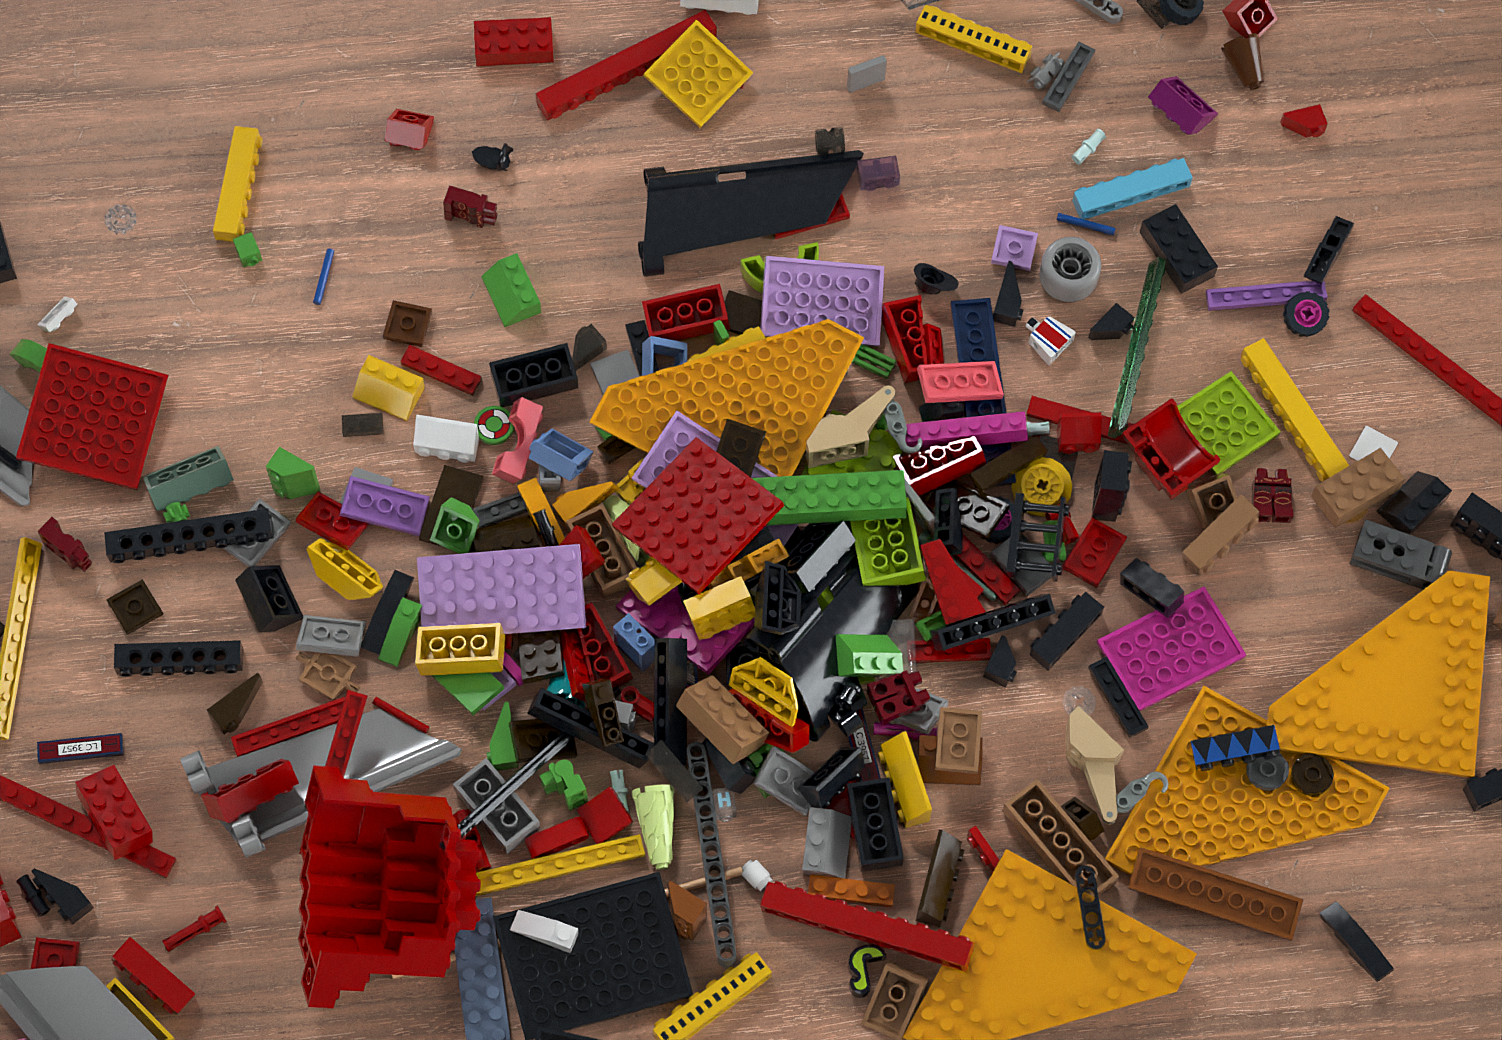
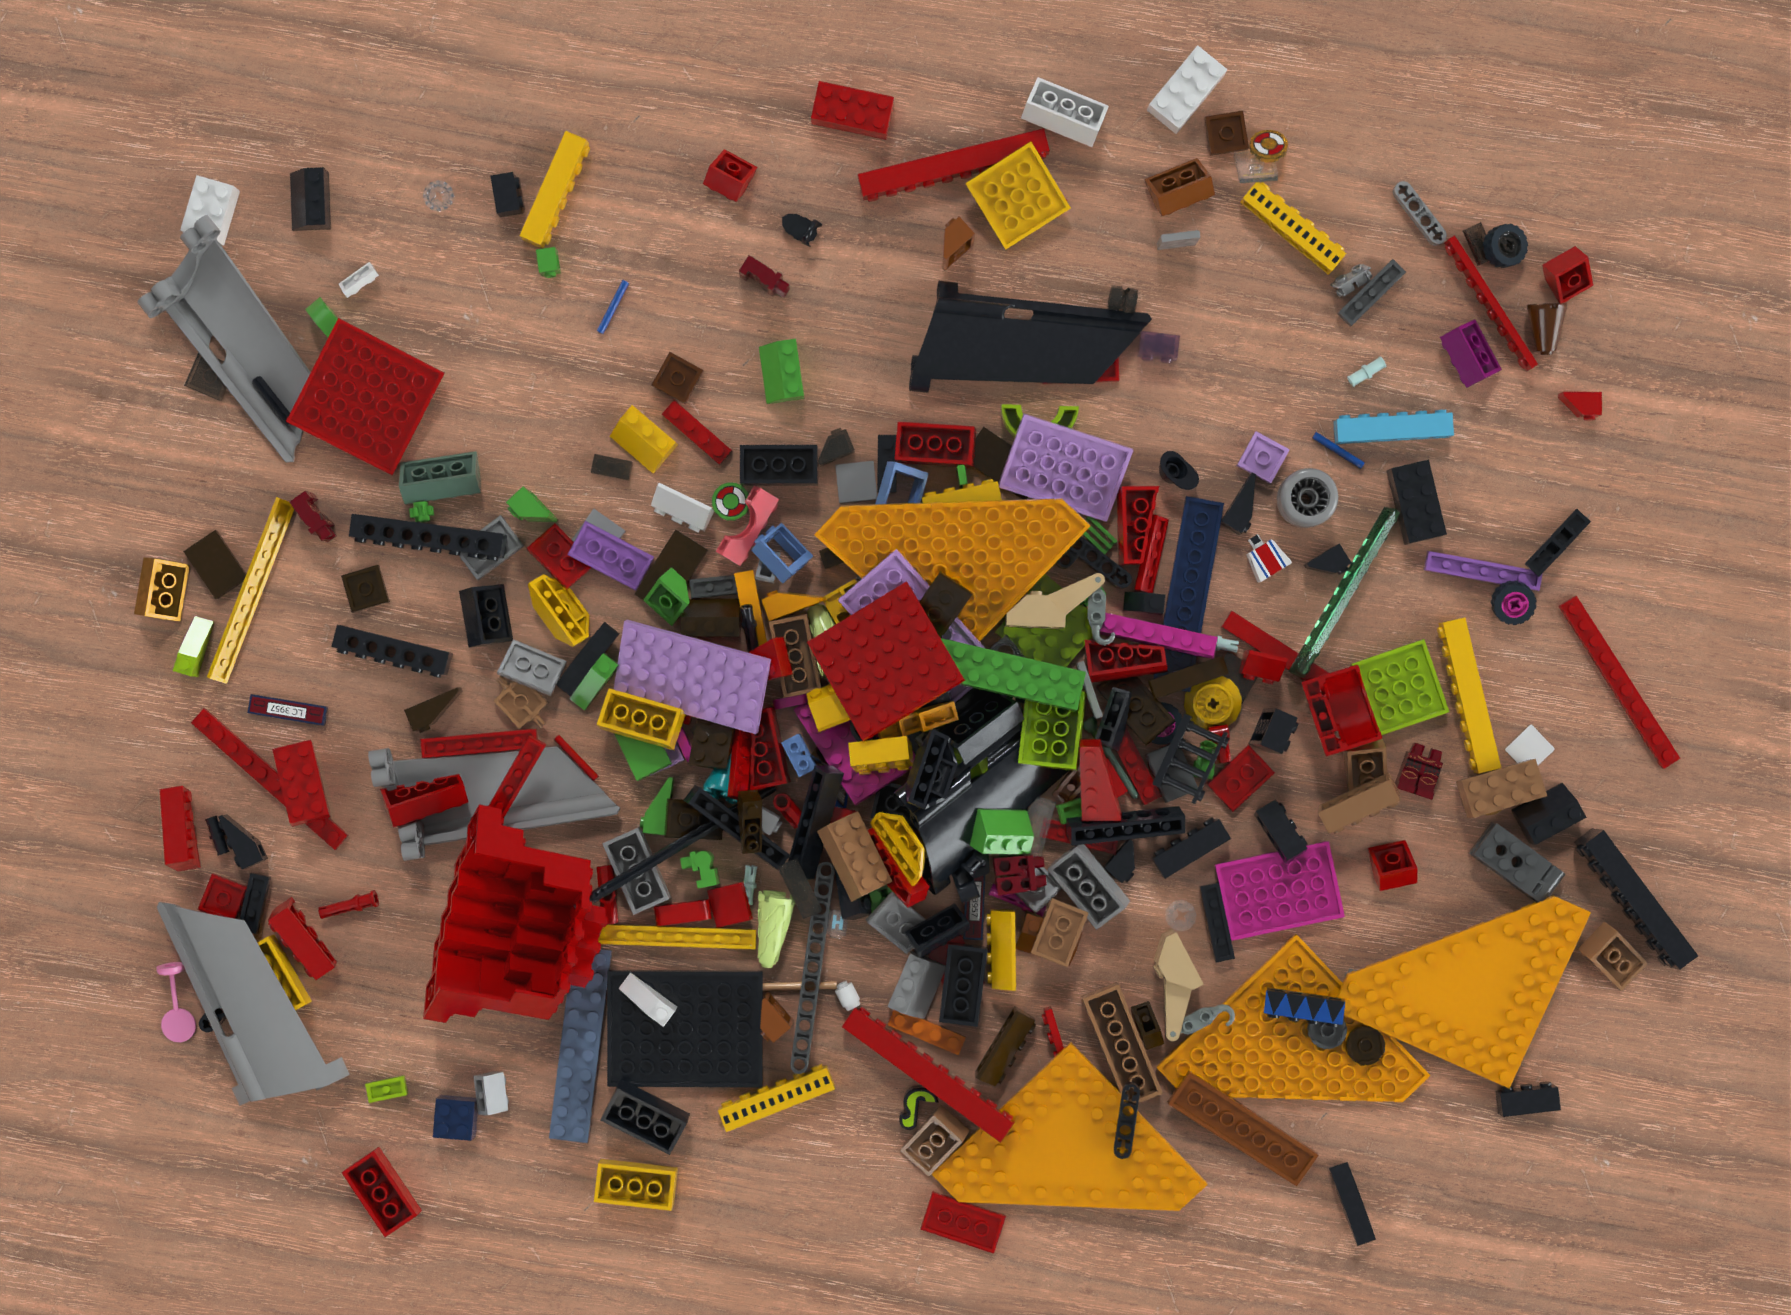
camera: 20 degrees right, 20 degrees up
(90, 947) = (255, 901): none -> black plate
(190, 200) = (506, 194): none -> black brick
(610, 598) = (790, 701): none -> dark pink beam
(651, 125) = (957, 241): none -> dark orange slope
(853, 30) = (1180, 187): none -> dark orange slope
(863, 382) = (1096, 565): none -> black beam
(960, 382) = (1168, 585): coral tile -> none
(973, 690) = (1088, 885): none -> light grey brick
(1185, 56) = (1486, 297): none -> red plate
(1278, 593) = (1393, 865): none -> red slope

